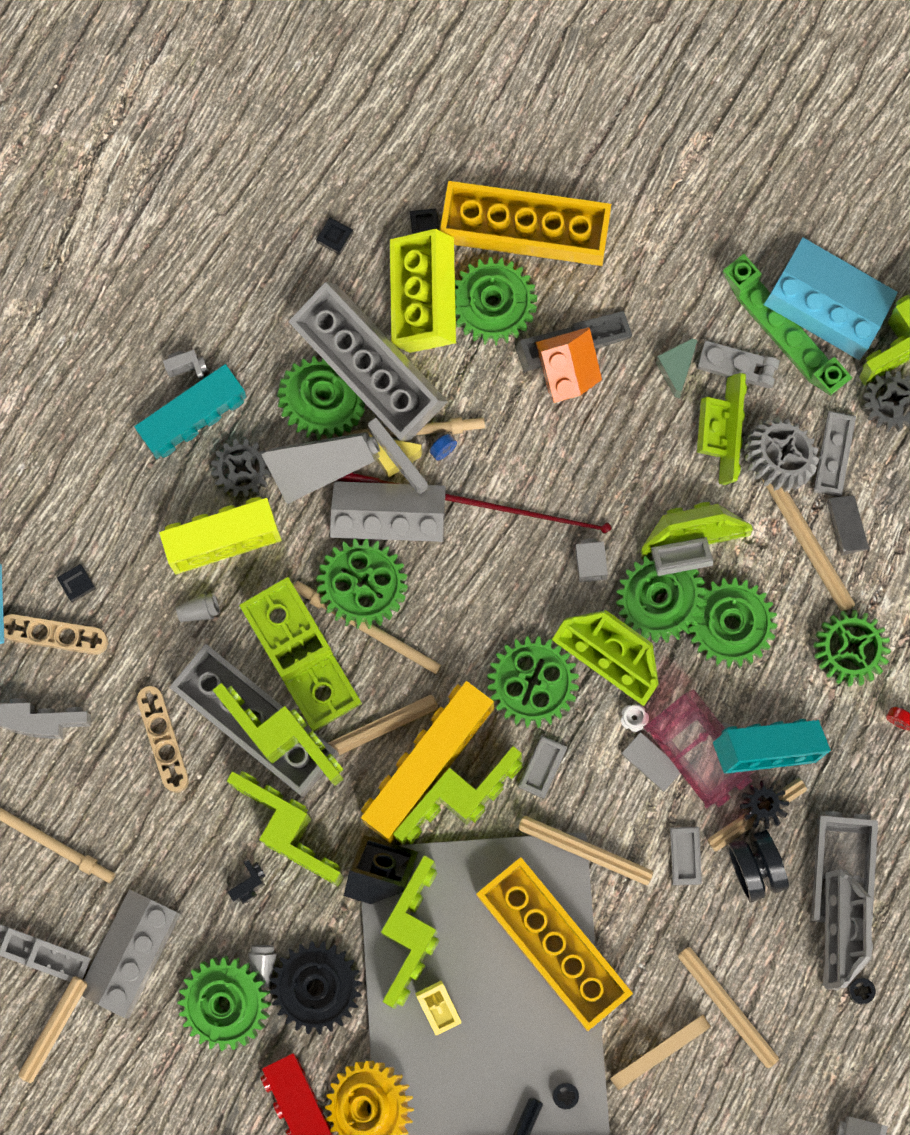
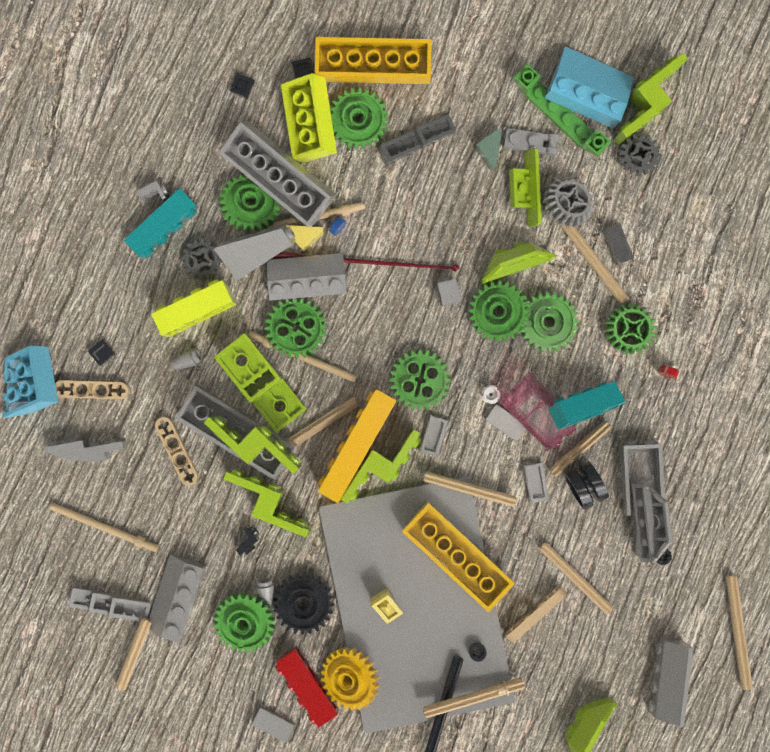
camera: 20 degrees left, 10 degrees up
(379, 871) = (335, 522): black slope -> none
(397, 456) = (306, 237): light grey tile -> none
(411, 933) = (362, 563): lime bracket -> none
(569, 364) = (416, 157): orange slope -> none
(612, 652) = (471, 354): lime wedge -> none
(682, 556) = (510, 282): light grey tile -> none
(765, 795) = (578, 442): black gear -> none
(834, 454) = (603, 196): light grey tile -> none

